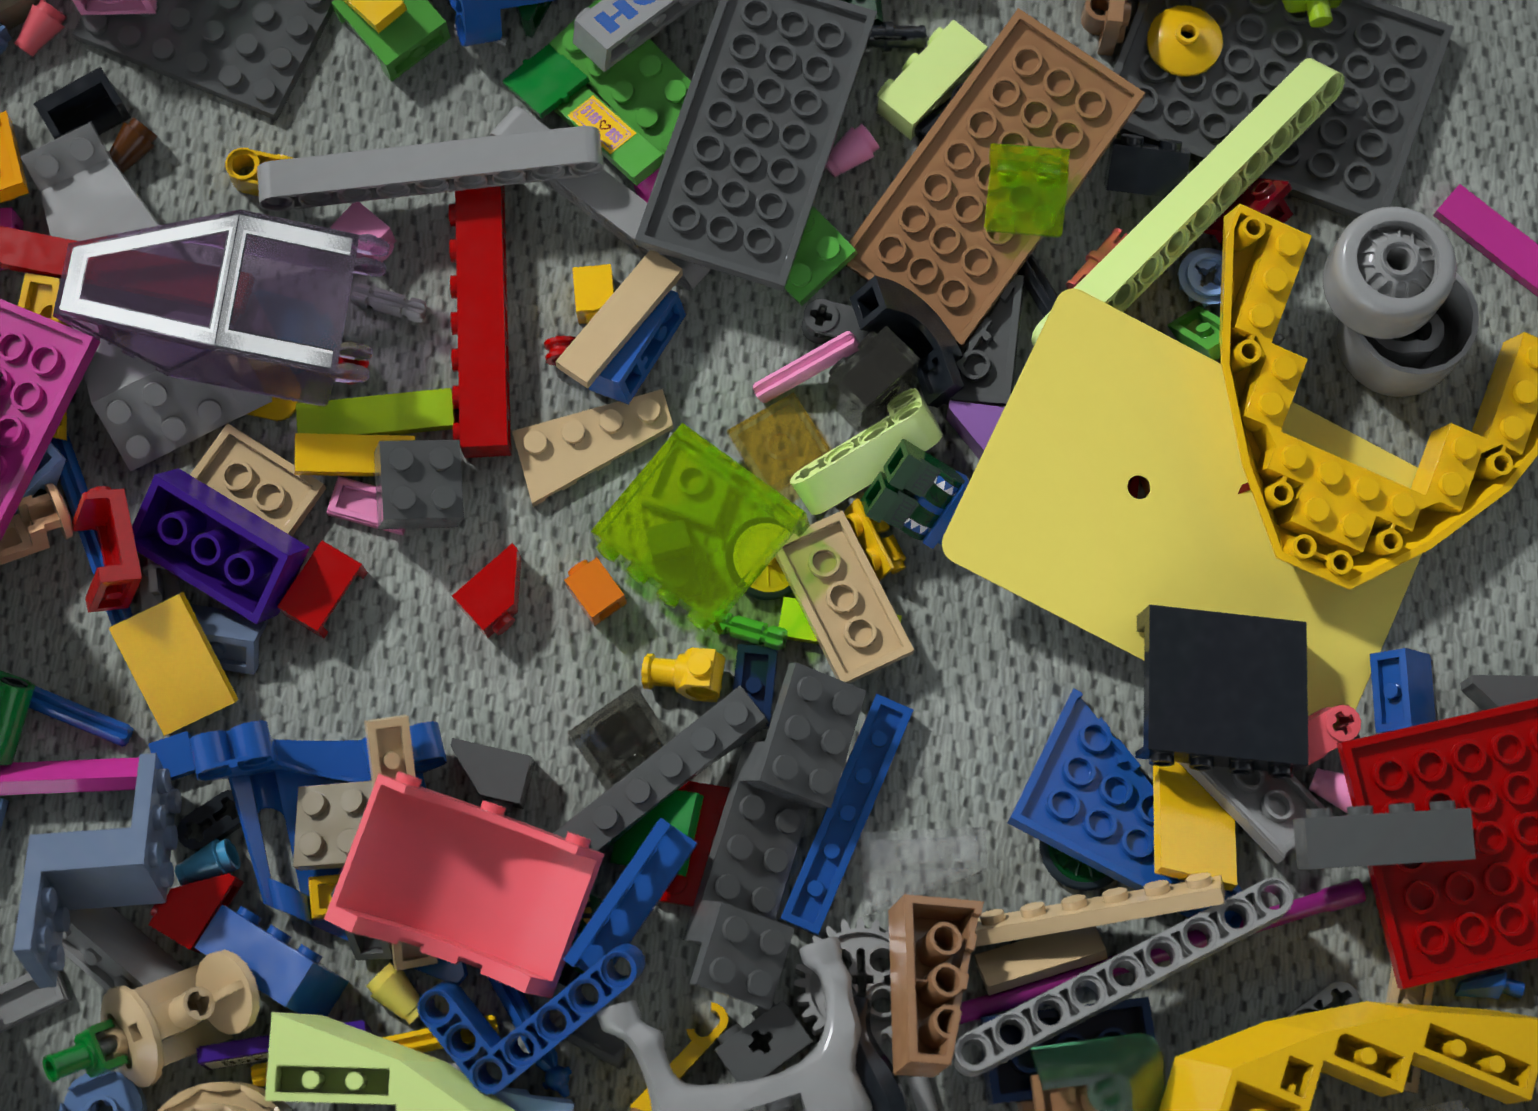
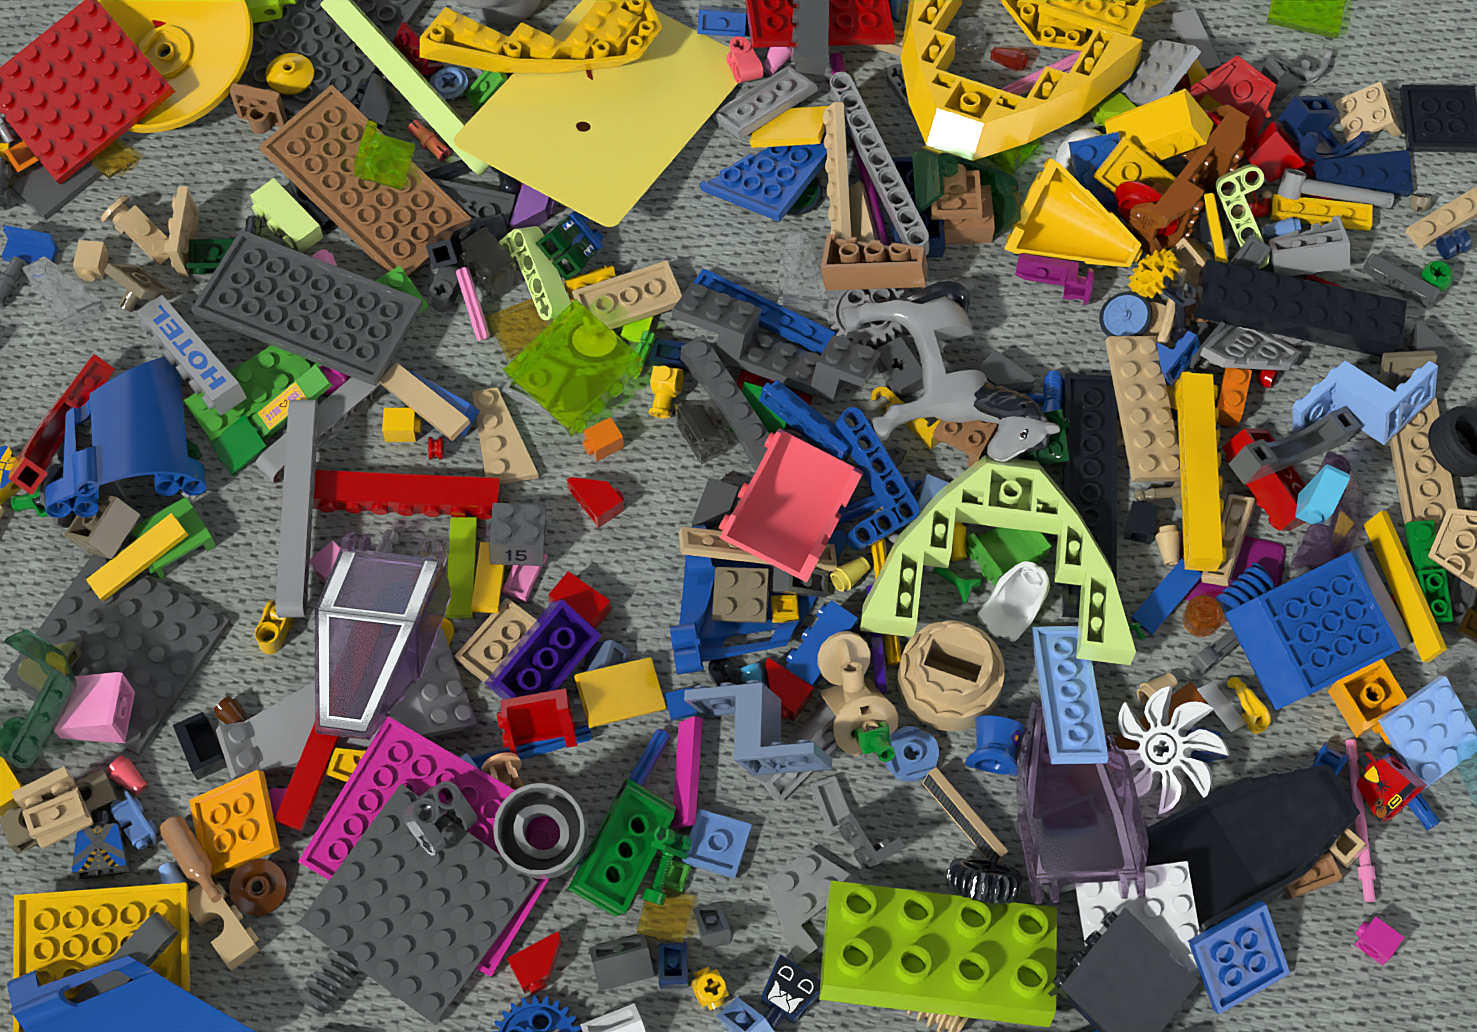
camera: 85 degrees left, 10 degrees down
(1224, 691) = (715, 95): black panel -> none

